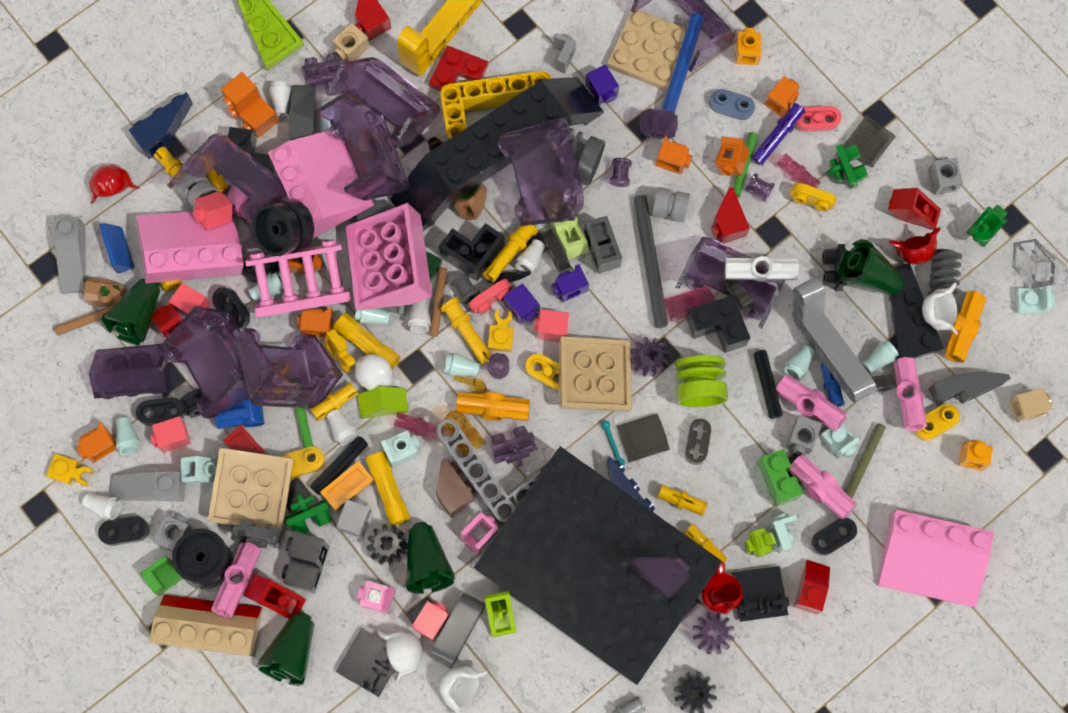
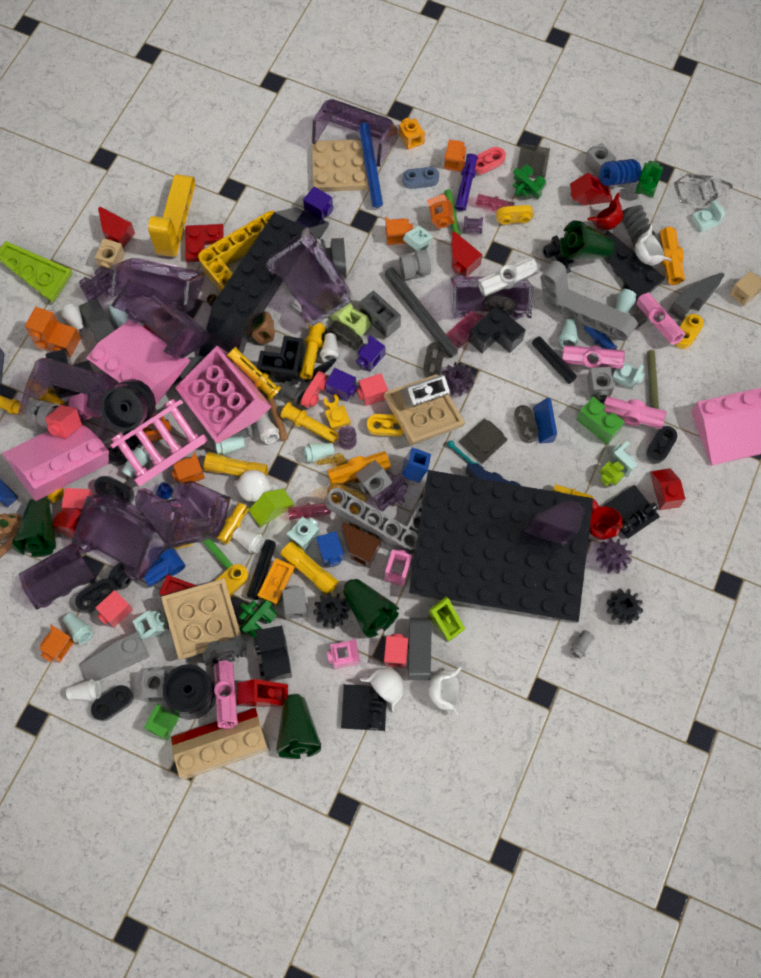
camera: 25 degrees left, 5 degrees down
(66, 469) = (39, 678): yellow plate -> none
(280, 332) = (164, 491): none -> clear blue hinge
(337, 349) = (215, 481): yellow plate -> none
(419, 479) = (330, 549): none -> blue brick
(436, 260) = (260, 379): none -> yellow pin
(499, 426) = (379, 476): none -> light grey brick
(553, 431) = (415, 464): none -> blue brick
(566, 51) = (277, 189): light grey bracket -> none
(602, 357) = (425, 391): none -> light grey brick
(620, 172) = (365, 258): clear purple bush -> none
(631, 320) = (430, 360): none -> clear smoke beam
(658, 123) = (374, 211): clear purple gear -> none
(682, 500) = (537, 470): yellow pin -> none
(689, 177) = (418, 238): none -> light aqua bracket
(701, 381) = (506, 377): lime wheel -> none
(719, 449) = (545, 421): none -> blue slope
(957, 202) = (620, 172): none -> blue piece
(975, 455) = (729, 336): light orange brick -> none

